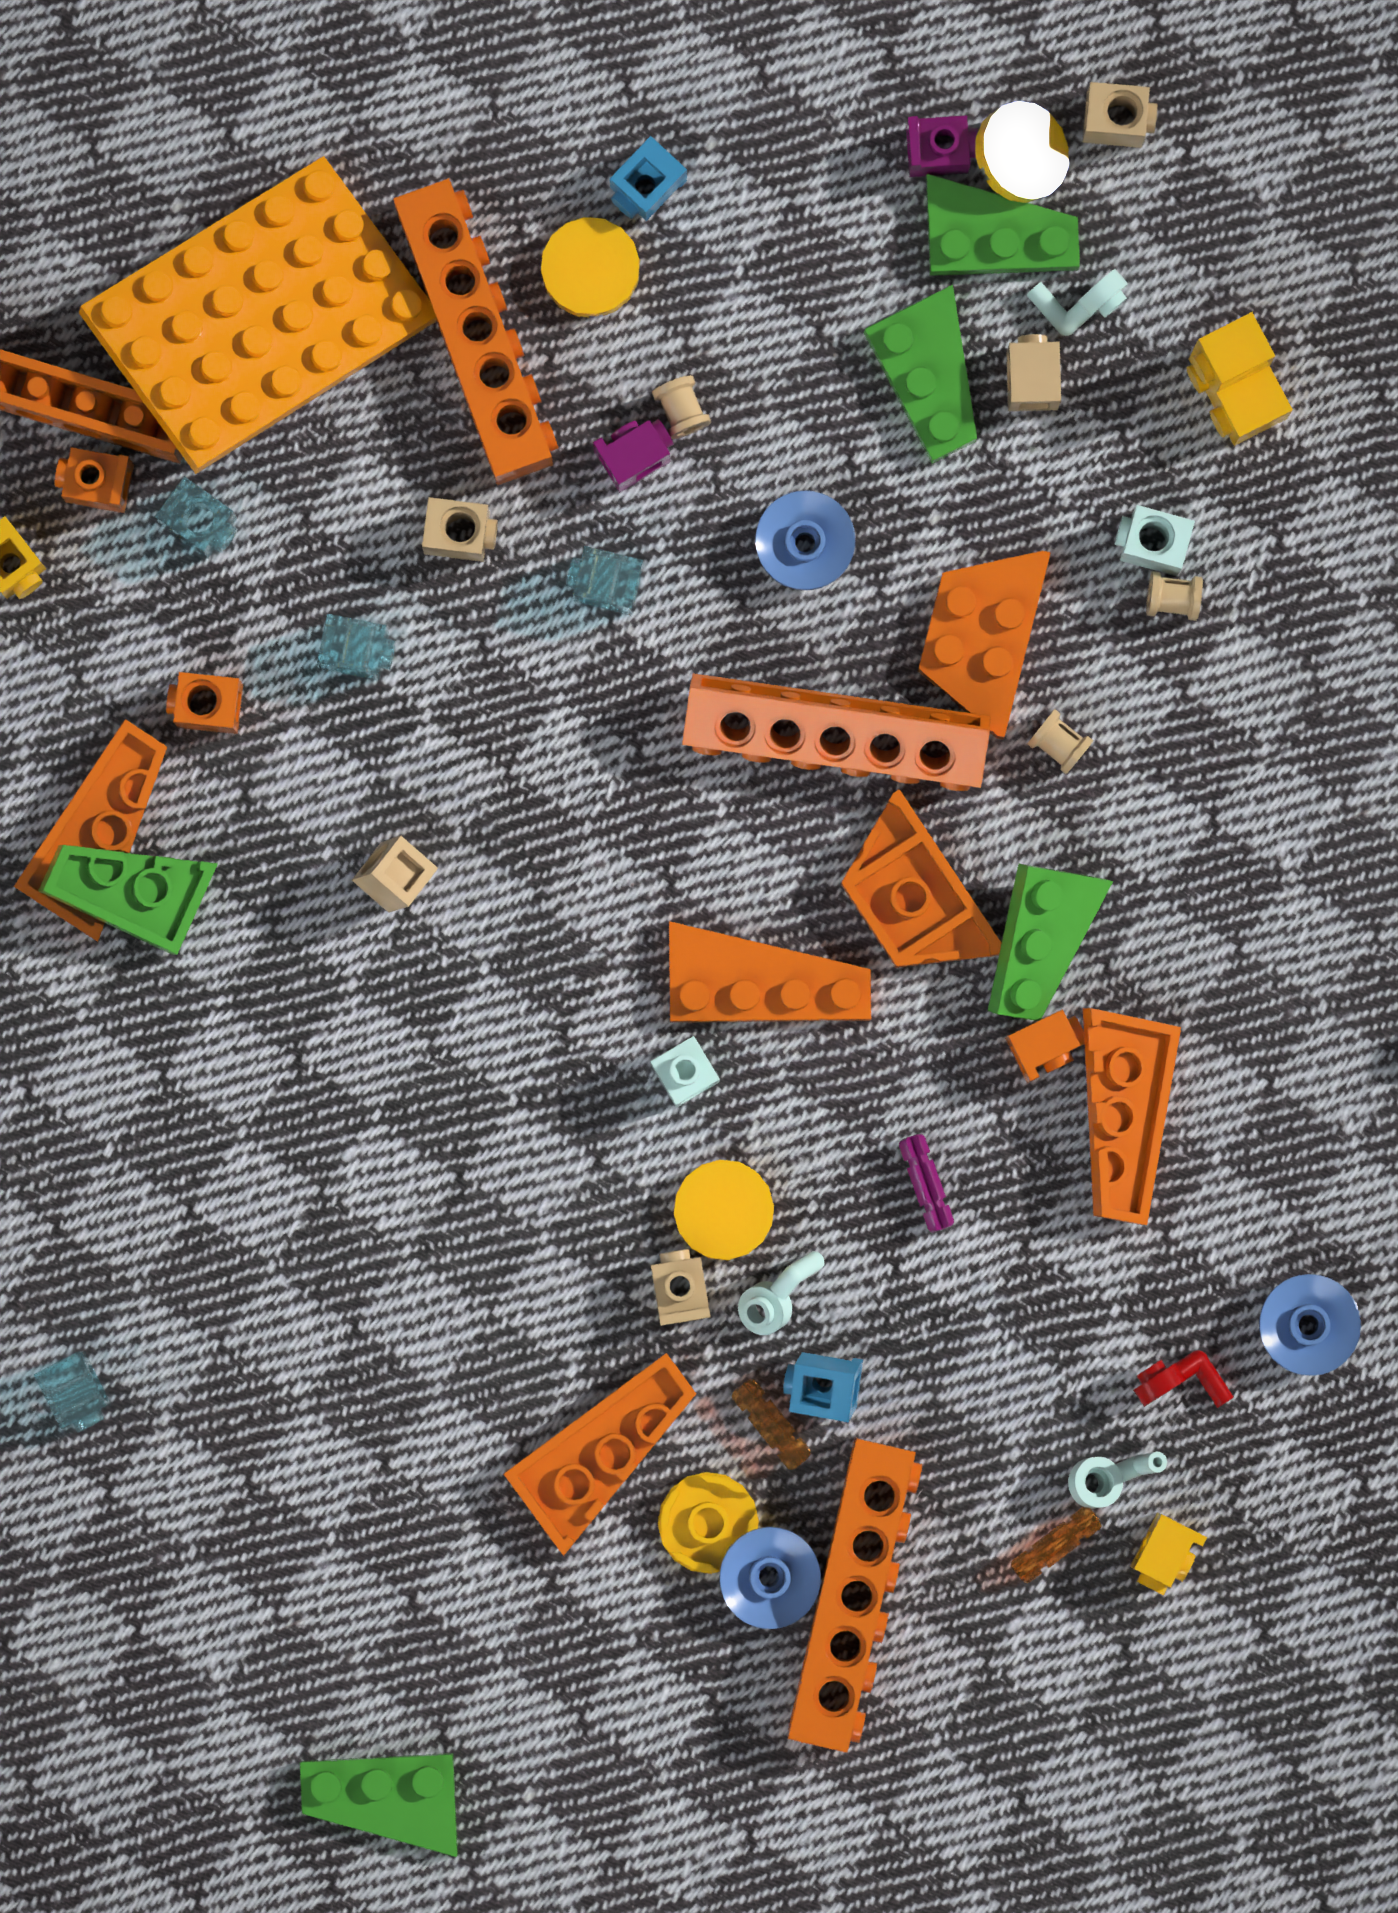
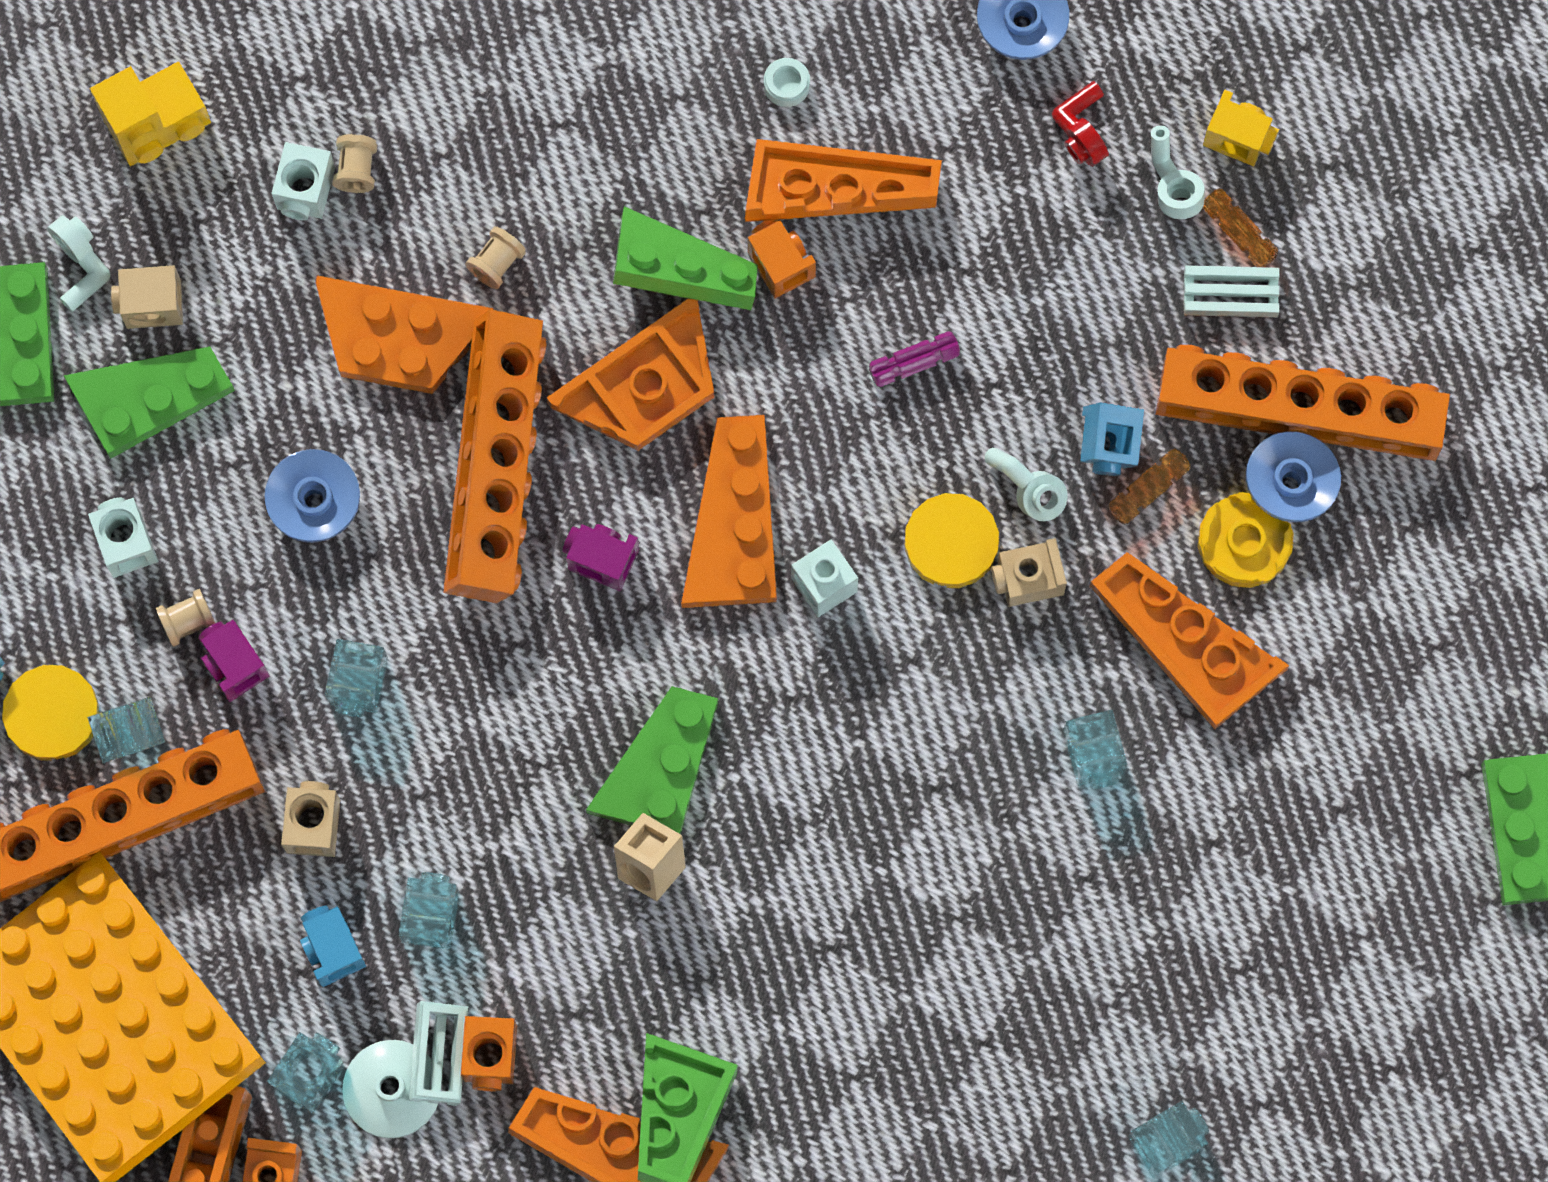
camera: 90 degrees left, 10 degrees down
(188, 628) = (381, 1113): none -> light aqua dish
(215, 633) = (434, 1093): none -> light aqua tile
(327, 546) = (330, 944): none -> dark azure brick
(484, 1345) = (1095, 749): none -> clear light blue brick
(498, 892) = (660, 764): none -> bright green wing
(560, 342) = (126, 729): none -> clear light blue brick
(725, 838) = (600, 554): none -> magenta brick
(756, 358) = (126, 555): none -> light aqua brick
(983, 1573) = (1231, 274): none -> light aqua tile
(1249, 1064) = (786, 82): none -> light aqua tile

